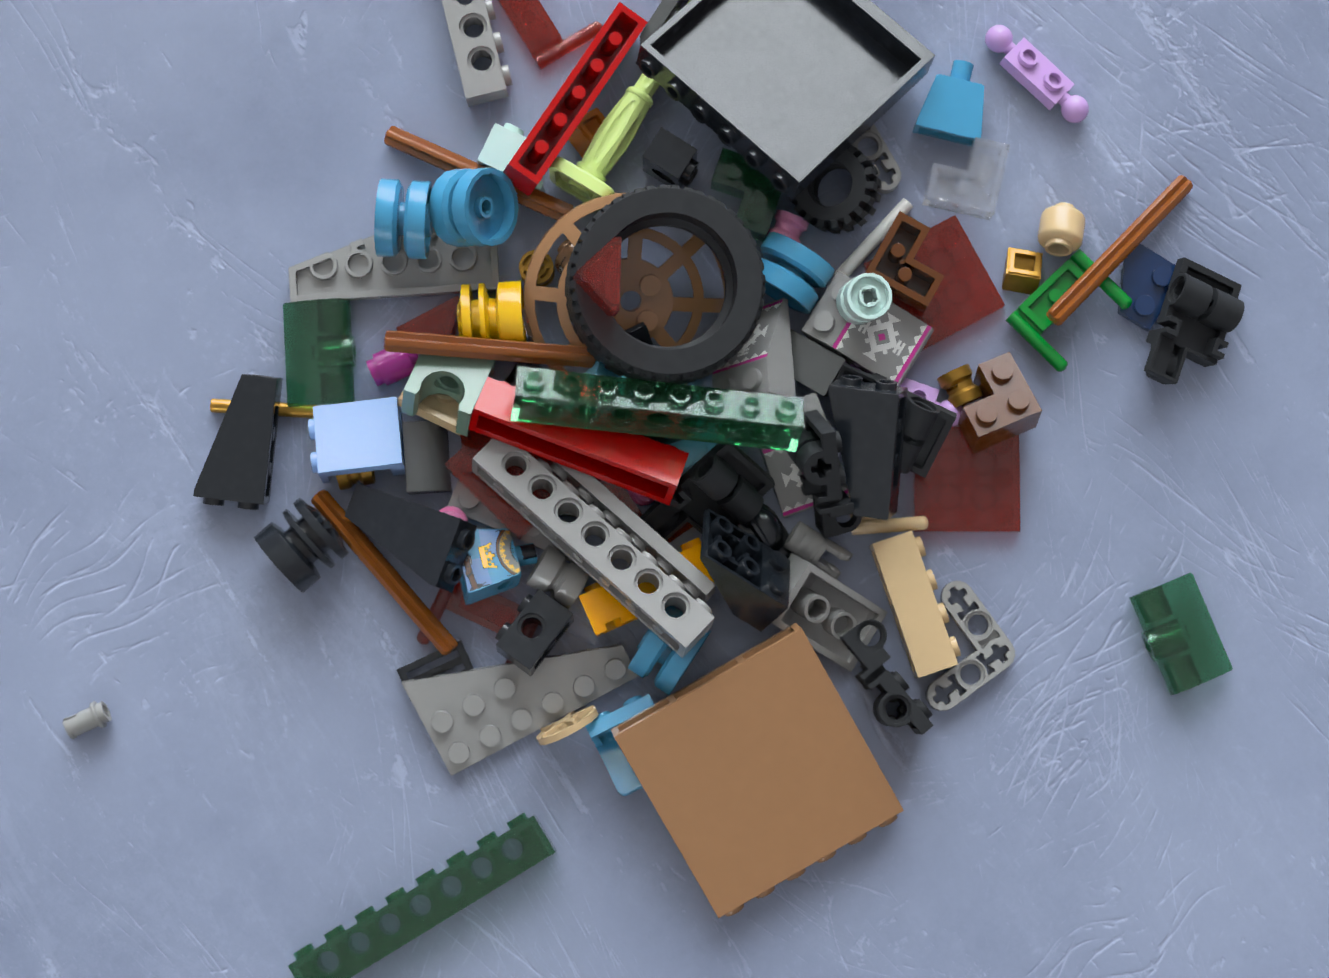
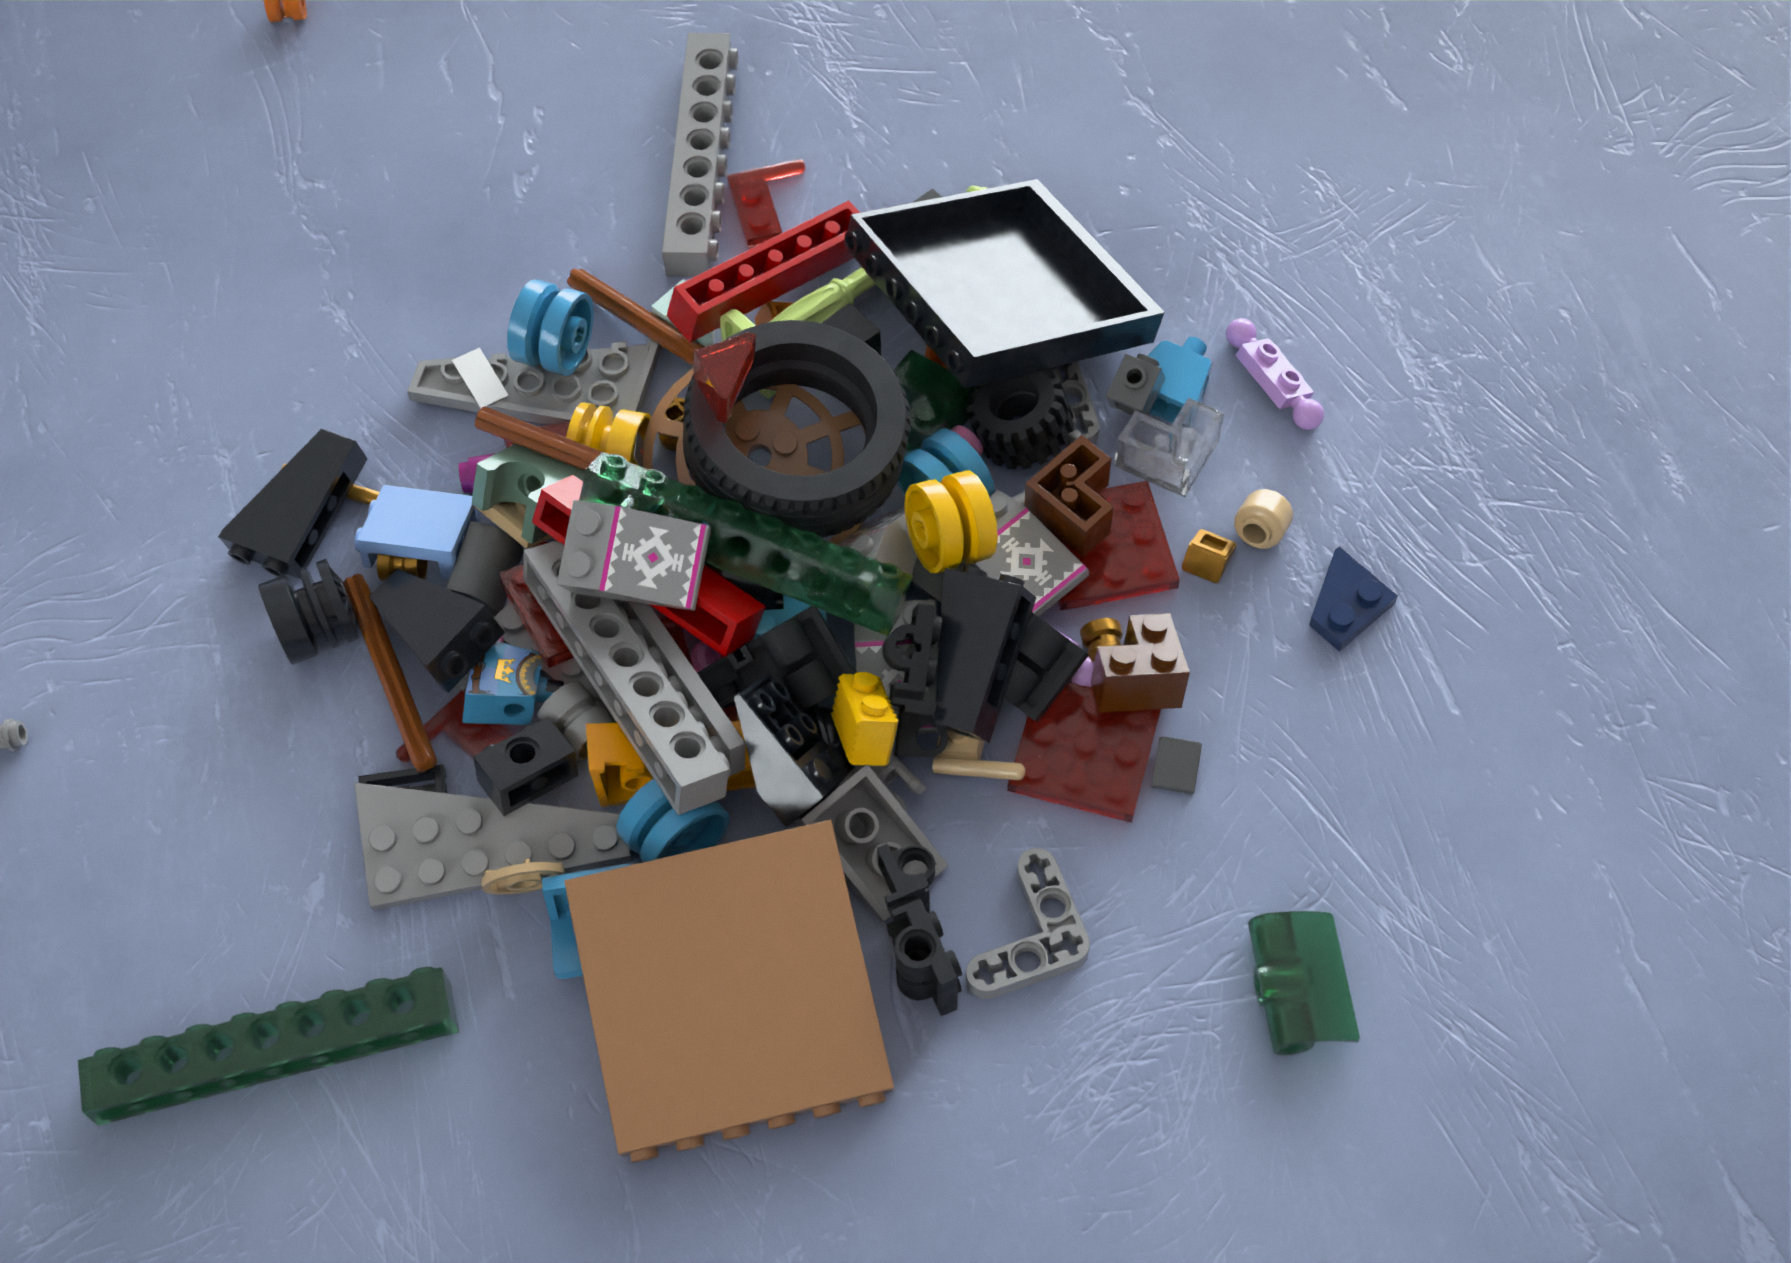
camera: 20 degrees right, 25 degrees down
(319, 352) = (418, 441): clear green panel -> none
(349, 271) = (480, 377): none -> white sticker
(473, 207) = (626, 330): dark azure wheel -> none
(577, 455) = (633, 556): none -> light grey slope
(795, 525) = (864, 719): none -> yellow brick
(820, 339) = (950, 521): none -> yellow wheel
(864, 298) = (1017, 502): light aqua wheel -> none
(914, 605) = (981, 861): tan brick -> none
(928, 136) = (1136, 384): none -> dark grey brick
(1031, 317) = (1241, 585): green plate -> none
(1043, 477) = (1176, 765): none -> dark grey slope
(1119, 250) = (1322, 551): dark orange axle -> none
(1195, 321) = (1392, 642): black plate -> none

